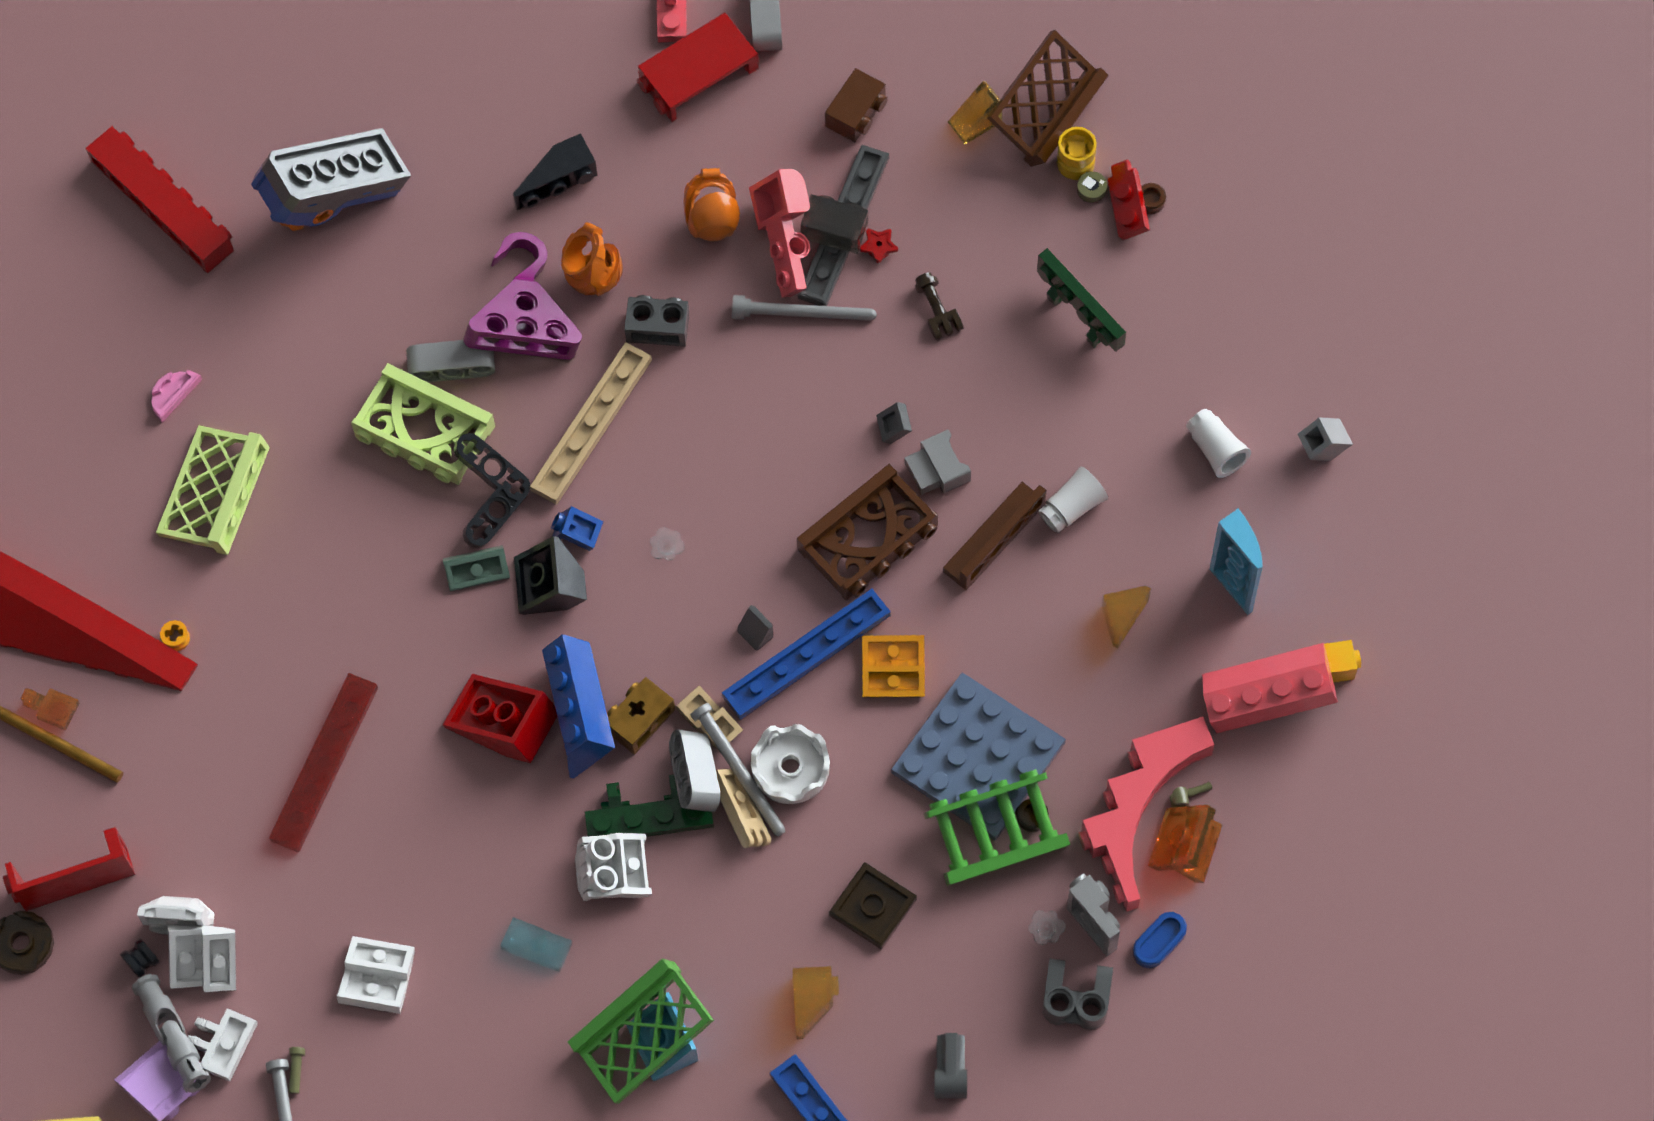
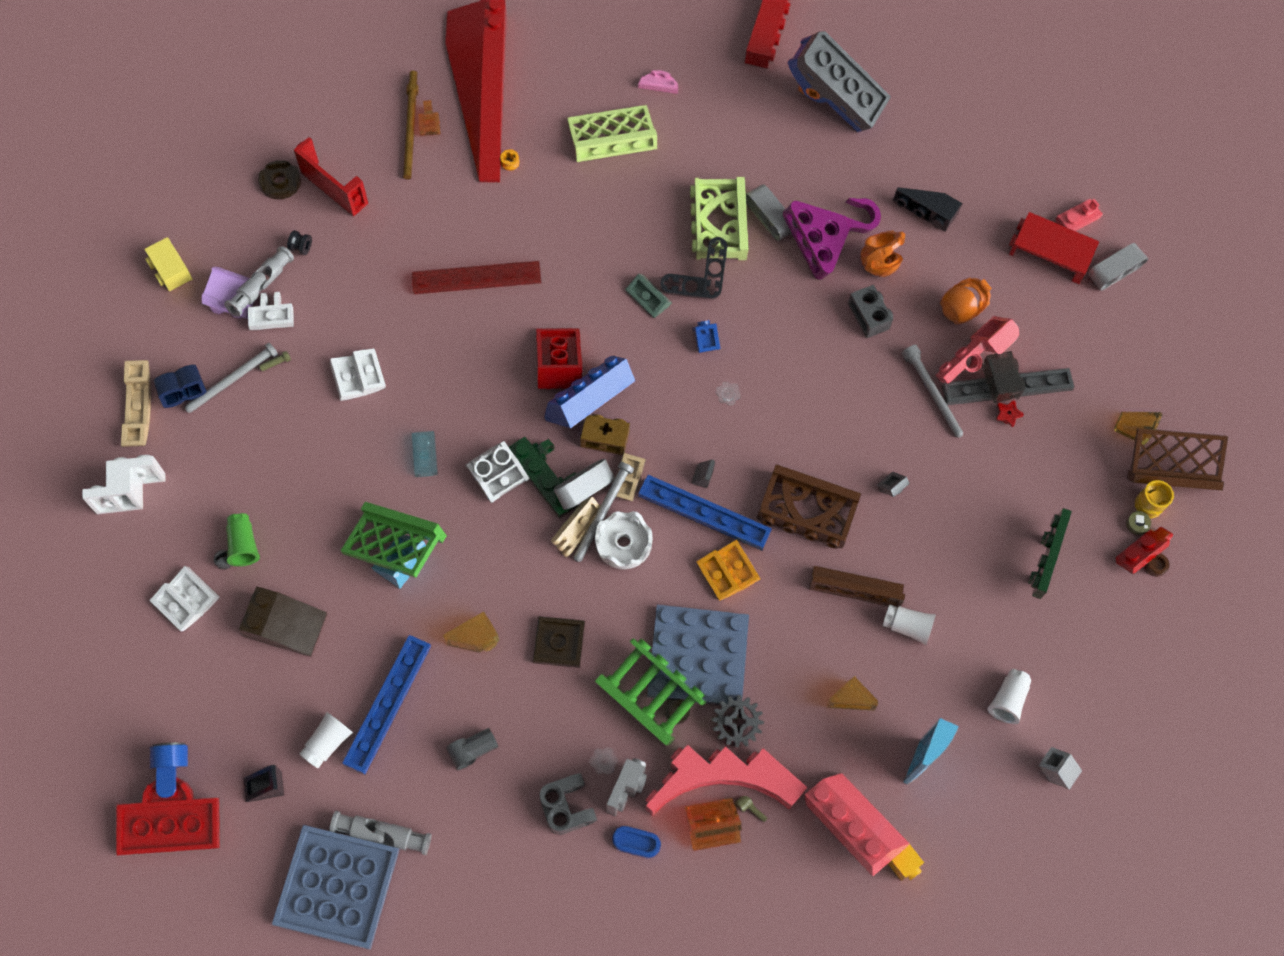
camera: 55 degrees right, 0 degrees up
(174, 911) = (336, 246): white slope -> none
(202, 957) = (313, 272): white slope -> none
(548, 578) = (663, 338): black slope -> none
(590, 423) = (780, 309): tan plate -> none
(855, 105) = (1092, 350): reddish brown brick -> none
(927, 283) = (1000, 455): dark brown hinge -> none
(937, 465) = (881, 525): light grey piece -> none
(1093, 756) = (727, 720): none -> dark grey gear

